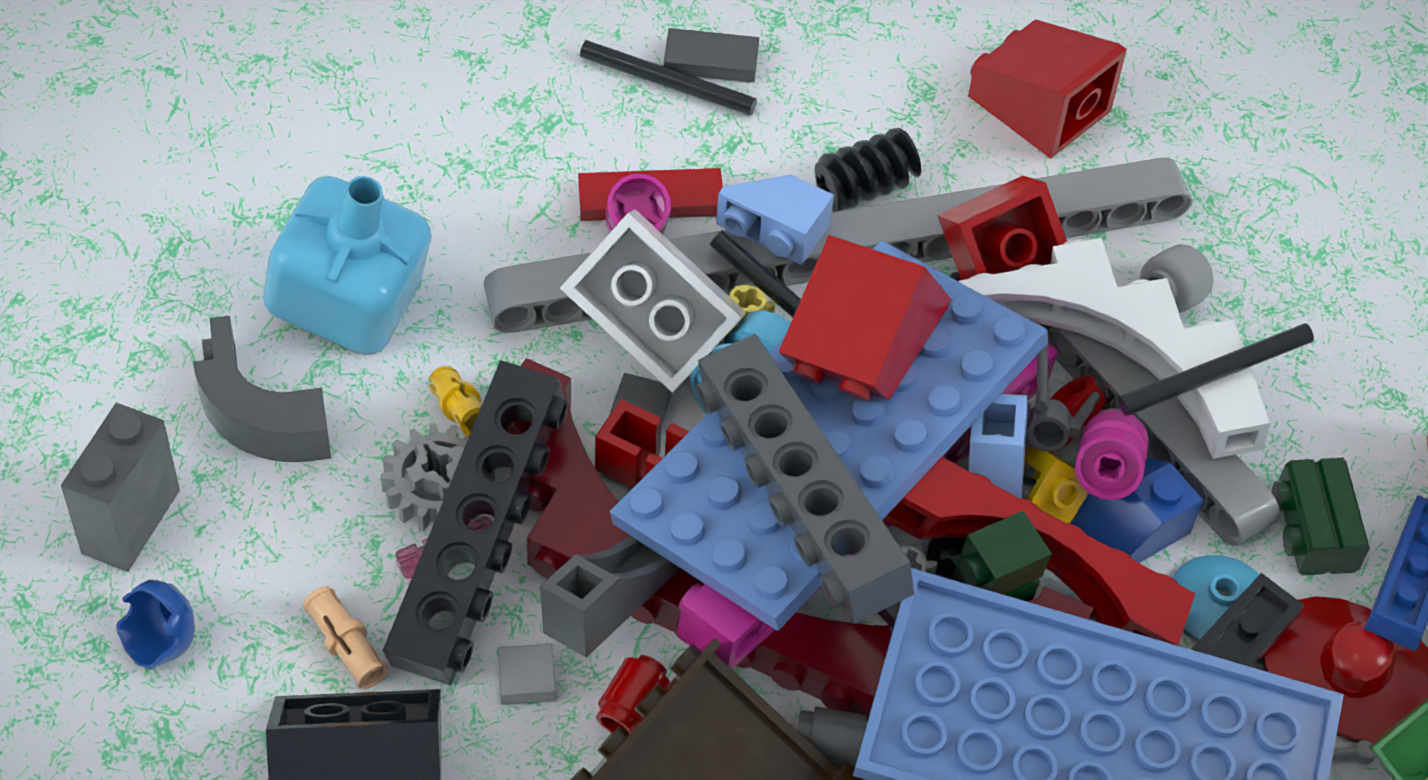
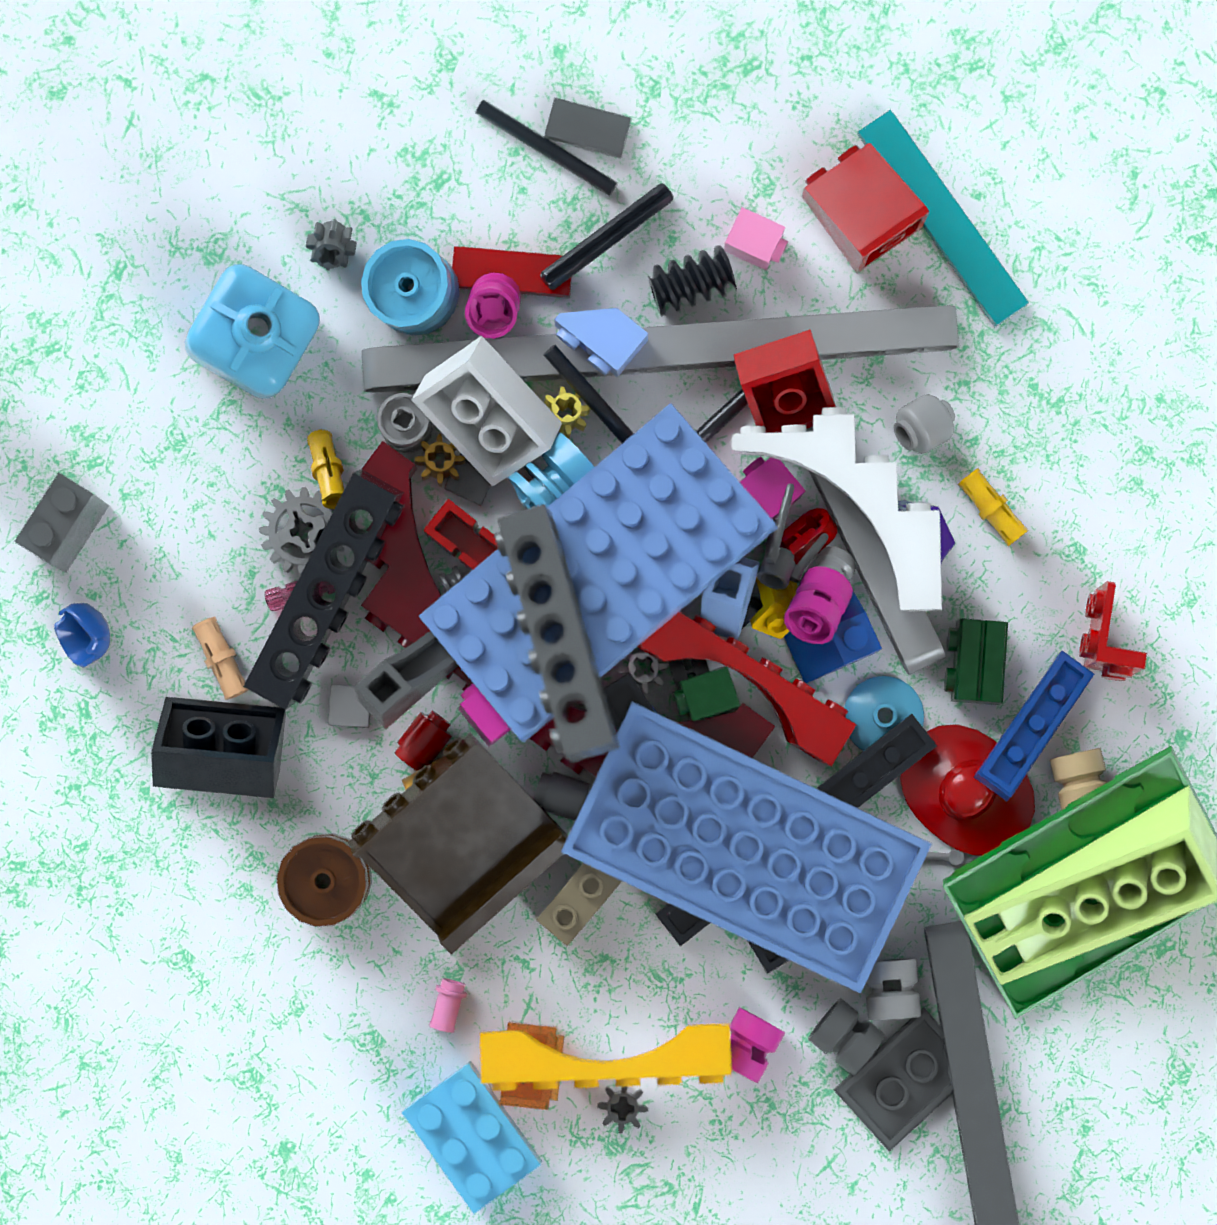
camera: 15 degrees right, 30 degrees up
(255, 419) = (181, 465): dark grey arch -> none
(431, 195) = (331, 244): none -> dark grey gear
(534, 204) = (387, 284): none -> medium azure wheel
(551, 335) = (403, 423): none -> light grey wheel
(600, 377) = (430, 454): none -> pearl gold gear
(755, 143) = (606, 236): none -> black axle
(862, 319) = (631, 503): red slope -> none
(932, 126) = (756, 239): none -> bright pink brick
(1167, 118) = (947, 221): none -> teal tile
(1215, 369) = (911, 557): black bar -> none
(1291, 365) = (993, 507): none -> yellow pin

